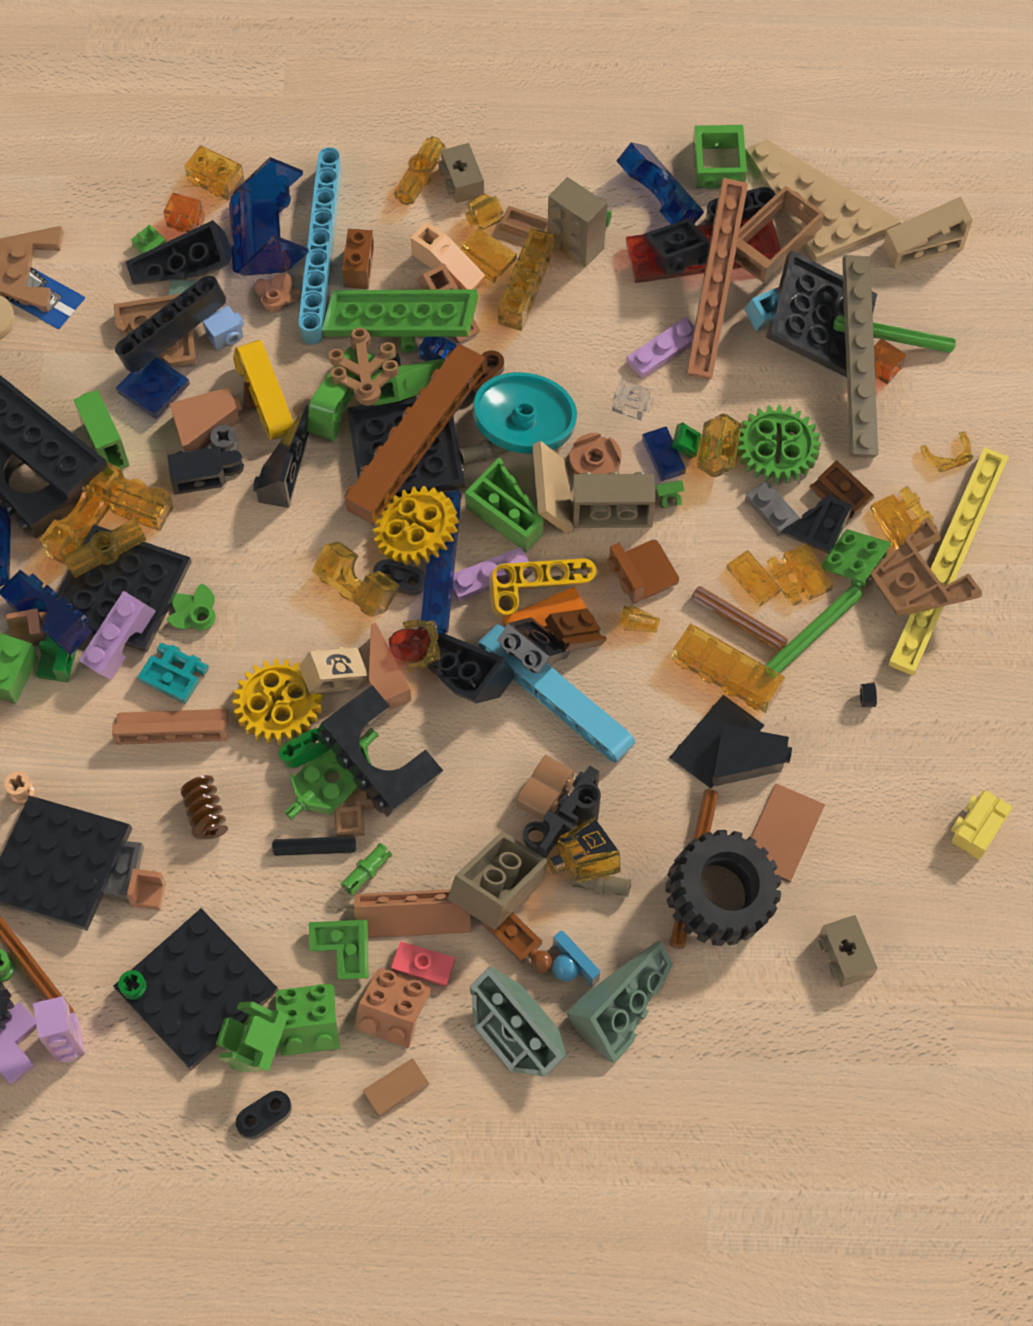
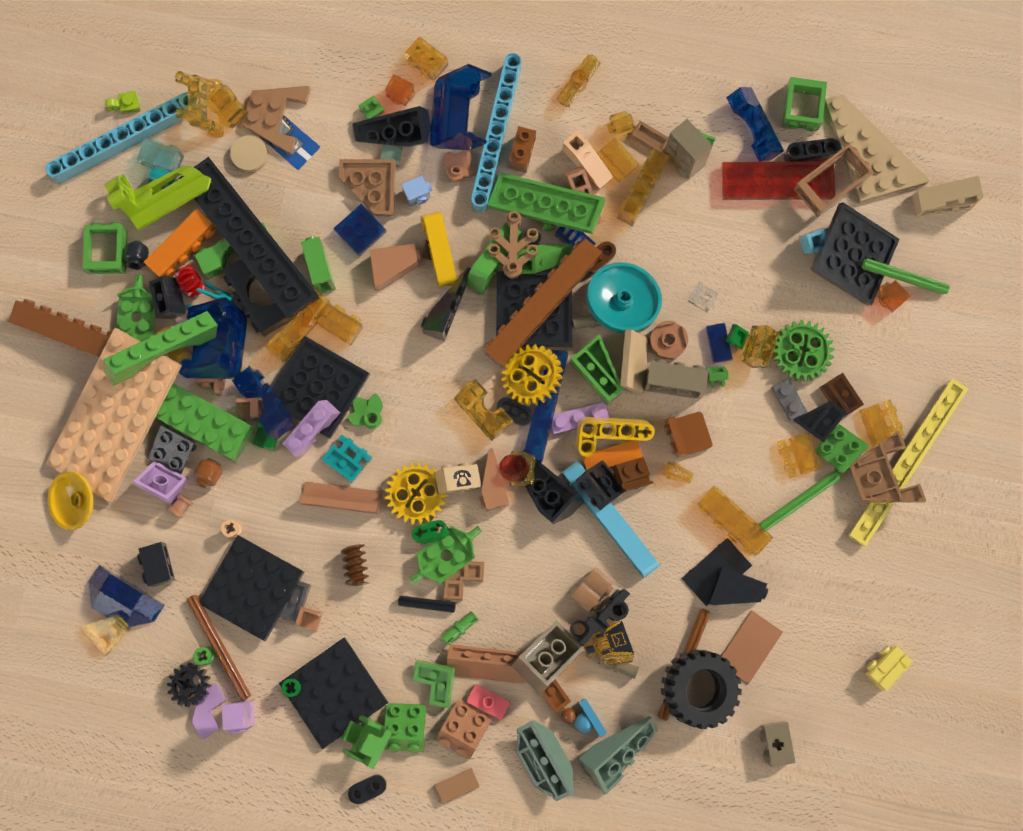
camera: 10 degrees right, 15 degrees up
(90, 555) = (298, 363): clear yellow piece -> none
(170, 323) = (386, 182): black beam -> none
(202, 469) = (386, 303): black hinge -> none
(221, 432) = (405, 287): flat silver wheel -> none
(386, 787) = (457, 532): black arch -> none
(462, 173) = (610, 78): dark tan brick -> none
(662, 348) = (734, 257): lavender plate -> none
(678, 246) = (760, 179): black plate -> none
(716, 279) = (783, 212): nougat plate -> none
(739, 618) = (749, 482): dark orange axle -> none
(753, 578) = (765, 452): clear yellow plate -> none
(860, 356) = (876, 292): dark tan plate -> none
(868, 695) = (829, 557): black axle -> none
(943, 464) = (921, 385): clear yellow cap -> none

